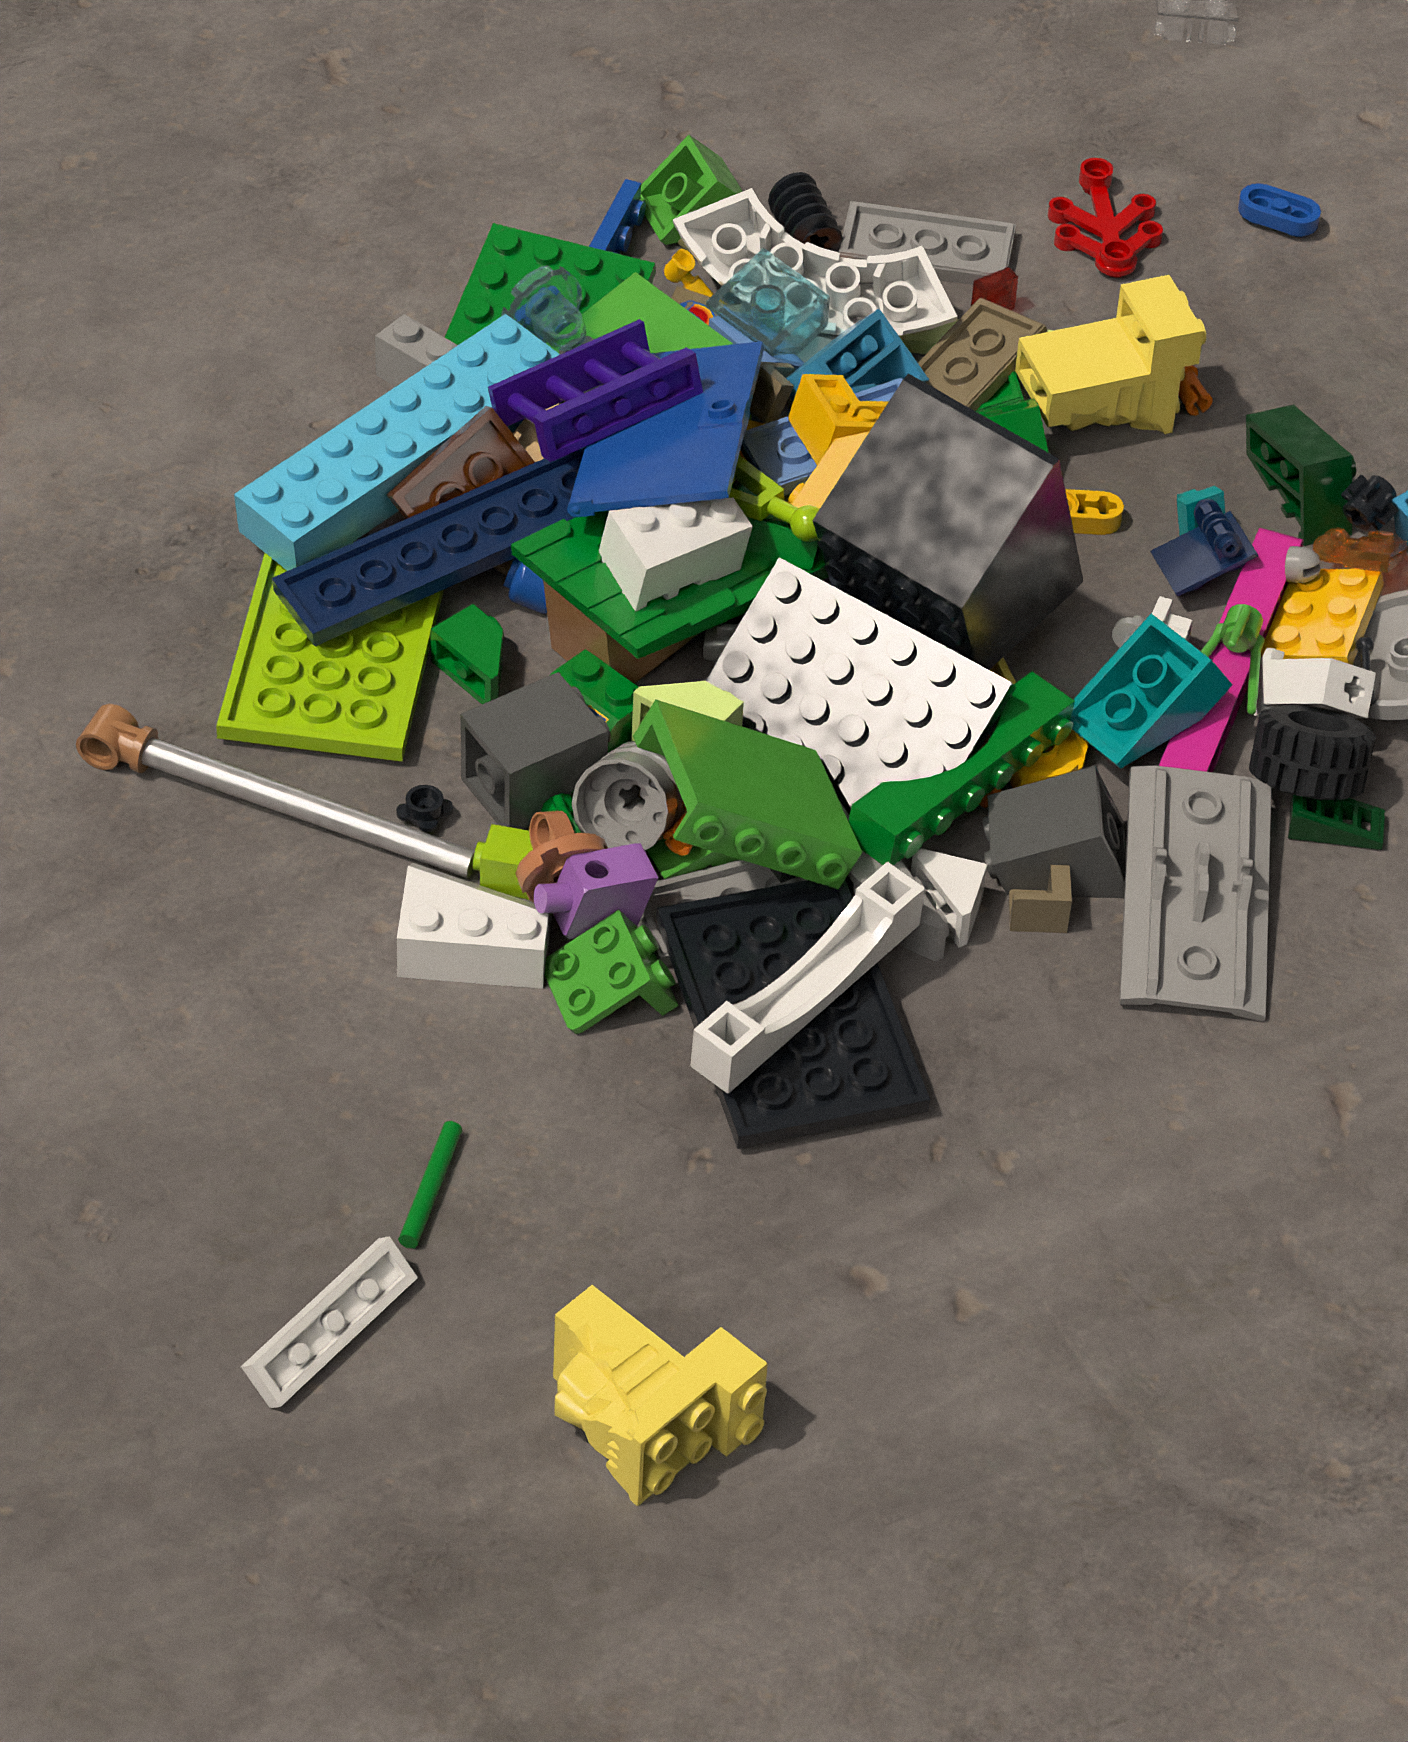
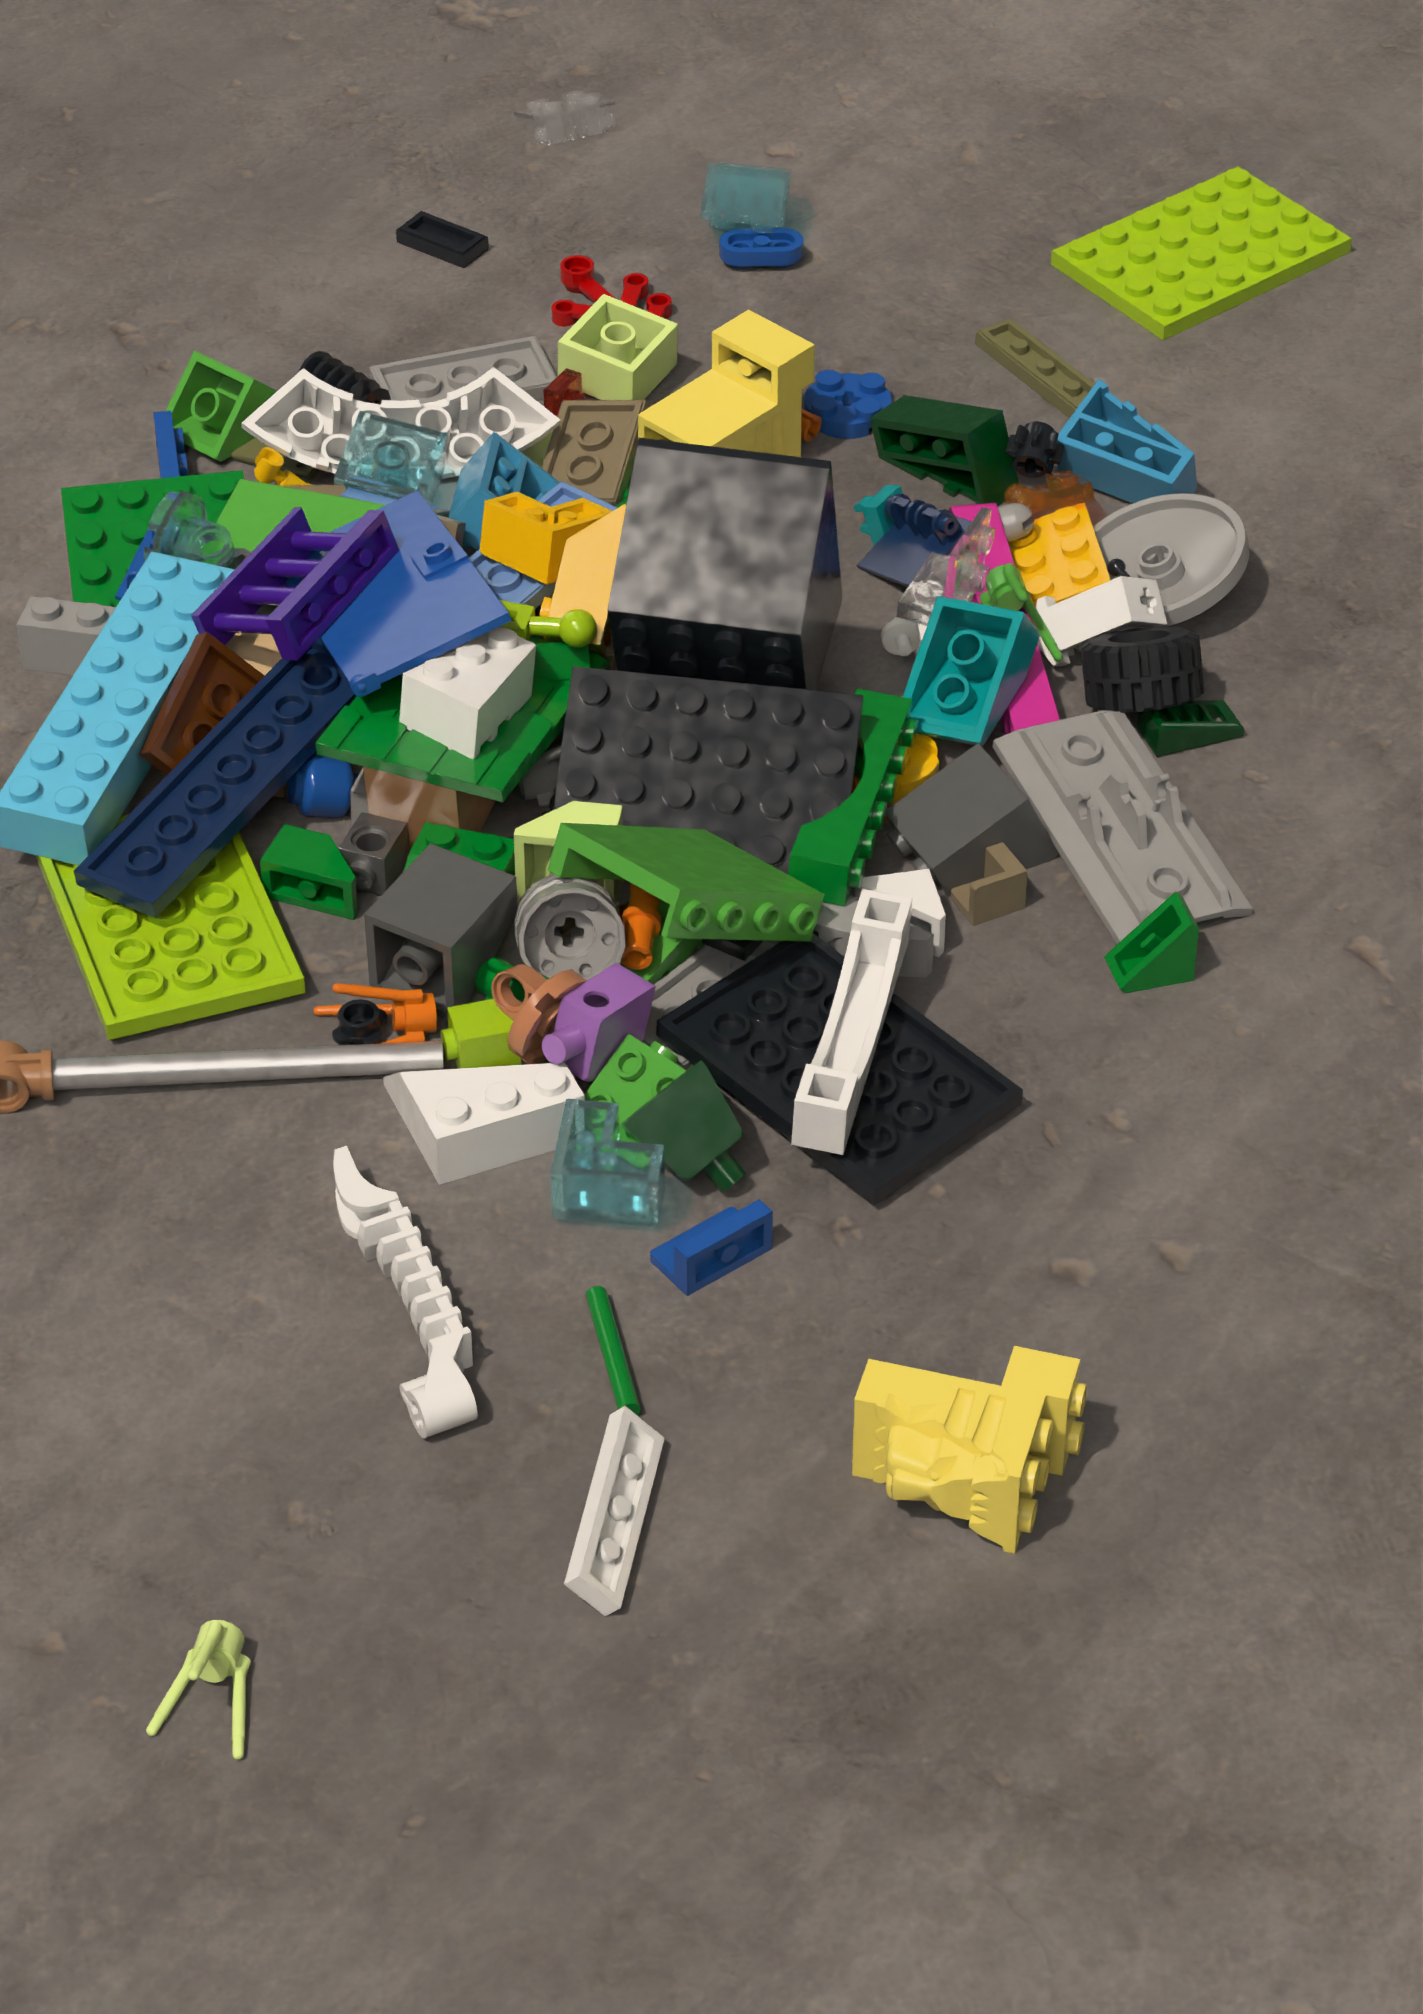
camera: 25 degrees left, 5 degrees down
(315, 1005) = (386, 1233): none -> white piece
(469, 813) = (410, 1009): none -> orange plant
(518, 1021) = (601, 1176): none -> clear light blue brick
(534, 654) = (376, 851): none -> flat silver brick
(576, 1129) = (715, 1247): none -> blue panel
(613, 1016) = (693, 1126): none -> dark green torso
(1002, 99) = (442, 239): none -> black tile
(1068, 267) = (619, 350): none -> yellowish green brick
(1140, 1021) = (1157, 950): none -> green slope
(1196, 597) = (952, 575): none -> clear bracket
(1246, 373) = (833, 391): none -> blue plate
(1290, 156) = (746, 196): none -> clear light blue slope

